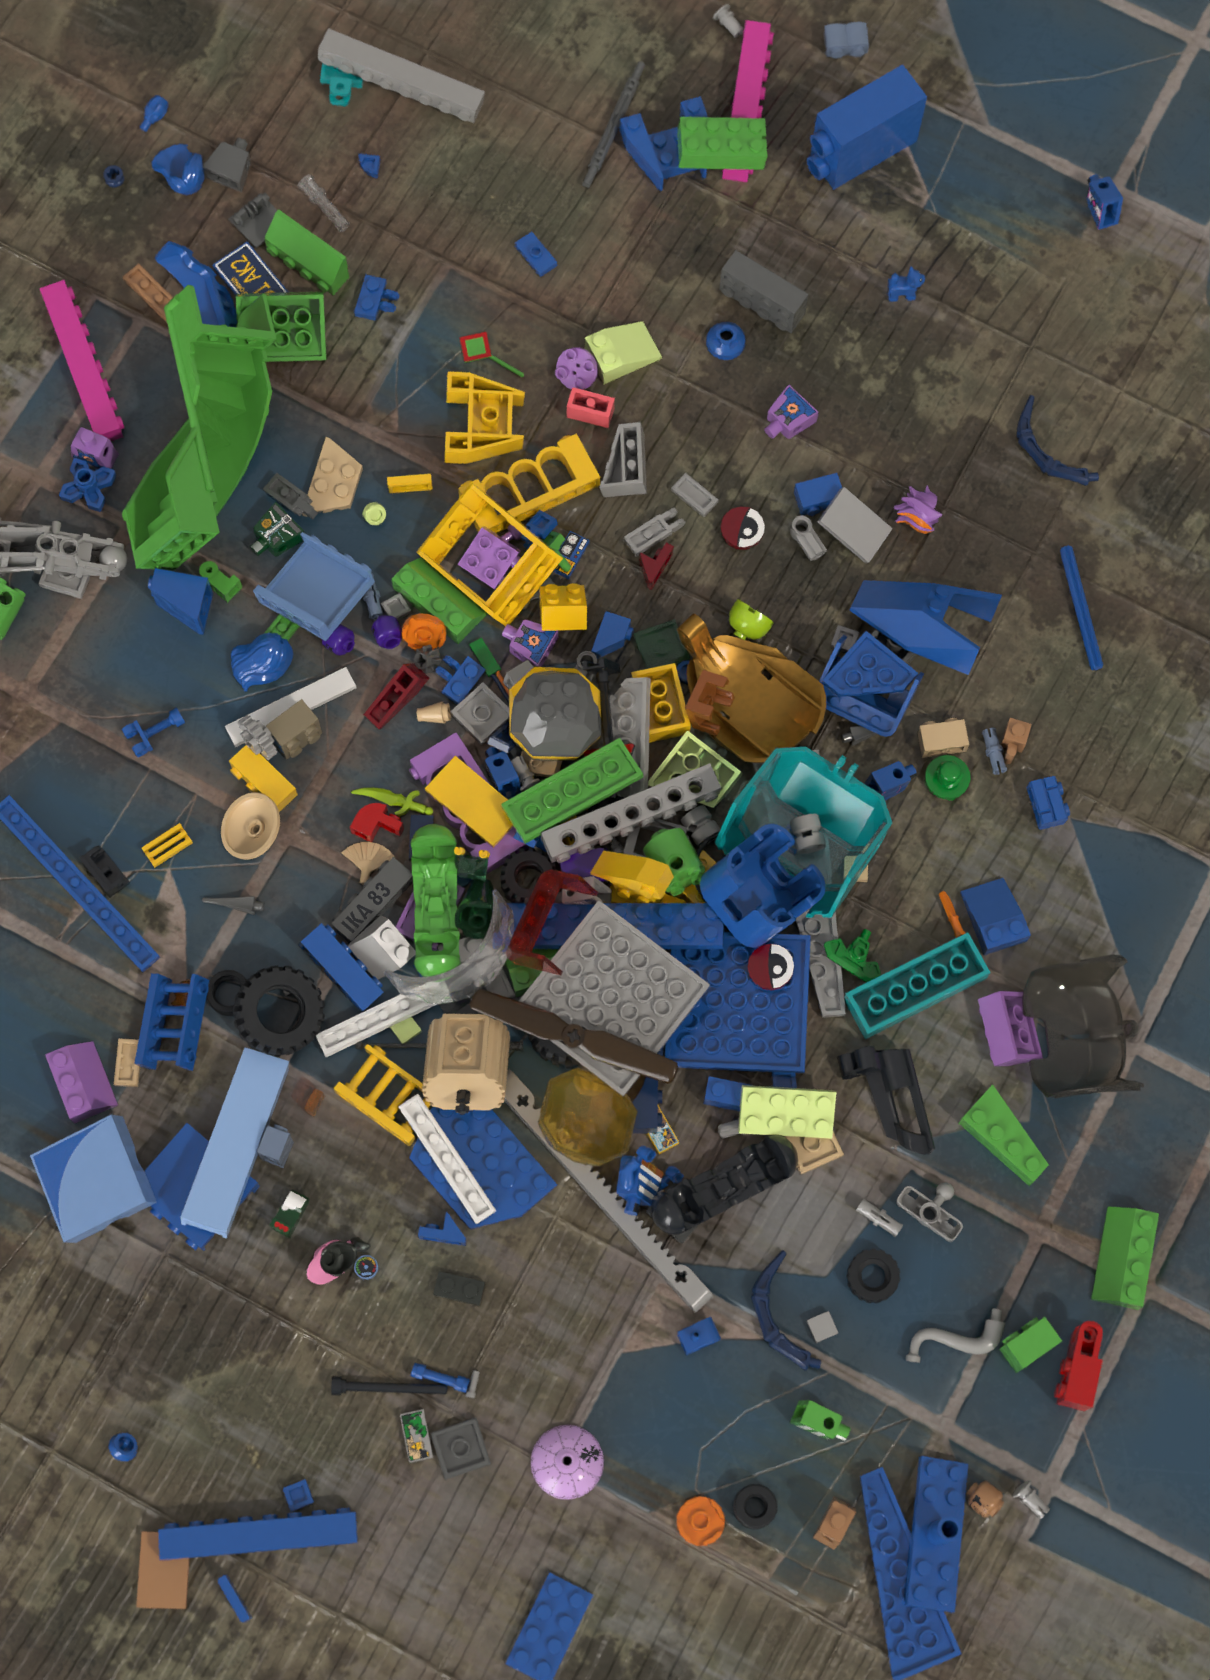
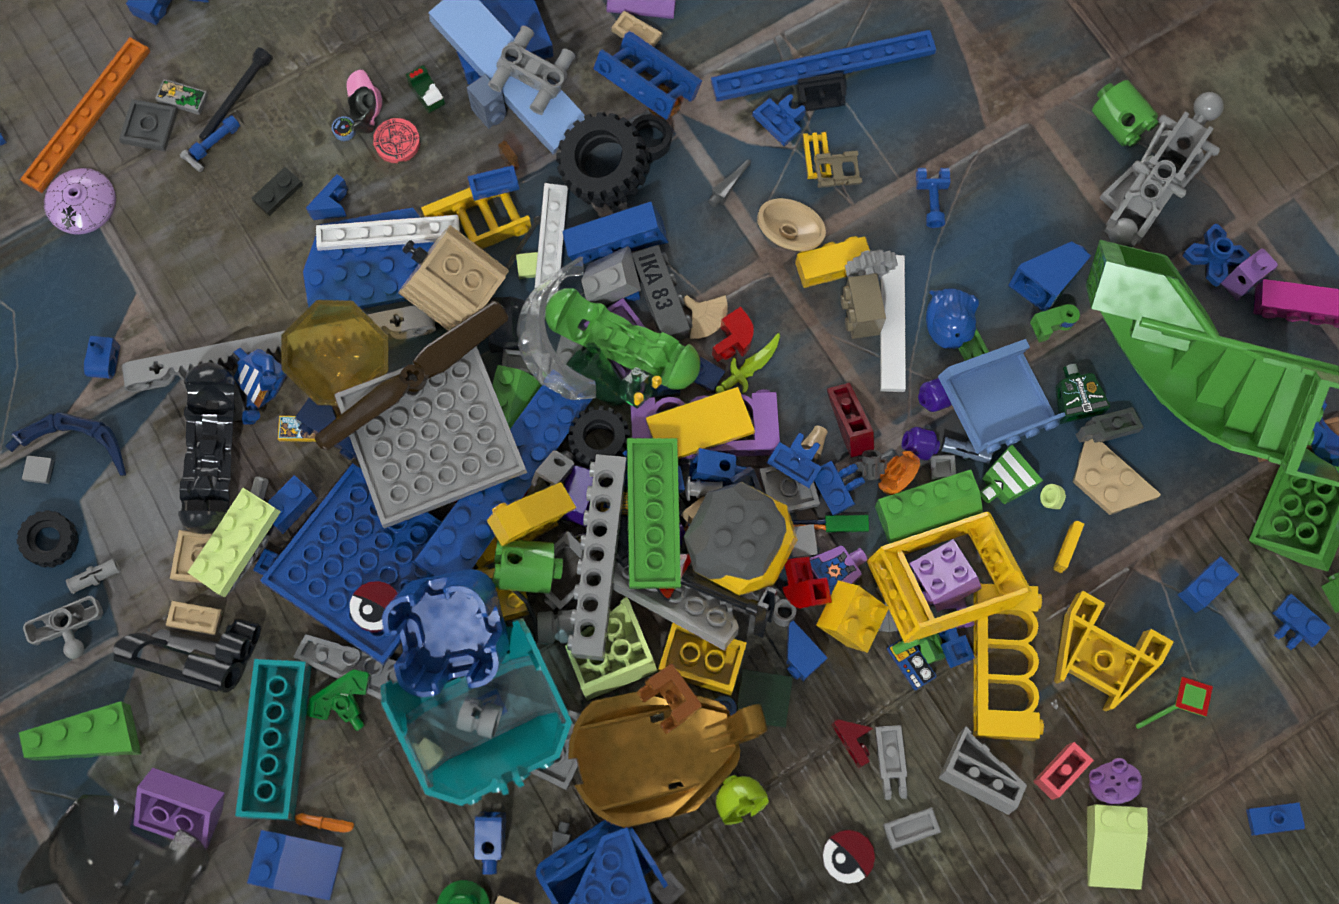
camera: 120 degrees right, 0 degrees up
(149, 892) = (780, 119): none -> blue plate
(180, 814) = (836, 162): none -> dark tan piece
(231, 1110) = (531, 70): none -> light grey piece
(351, 1213) = (396, 140): none -> coral tile
(352, 1092) = (493, 182): none -> blue tile
(379, 551) = (1009, 478): none -> bright green torso
(382, 371) = (1208, 584): none -> blue brick
(460, 712) = (796, 461): none -> blue plate
(482, 1514) = (85, 115): none -> orange tile
(535, 914) = (544, 402): clear red windscreen -> none
(564, 649) = (802, 588): none -> red brick
(862, 1113) = (194, 618): none -> tan plate

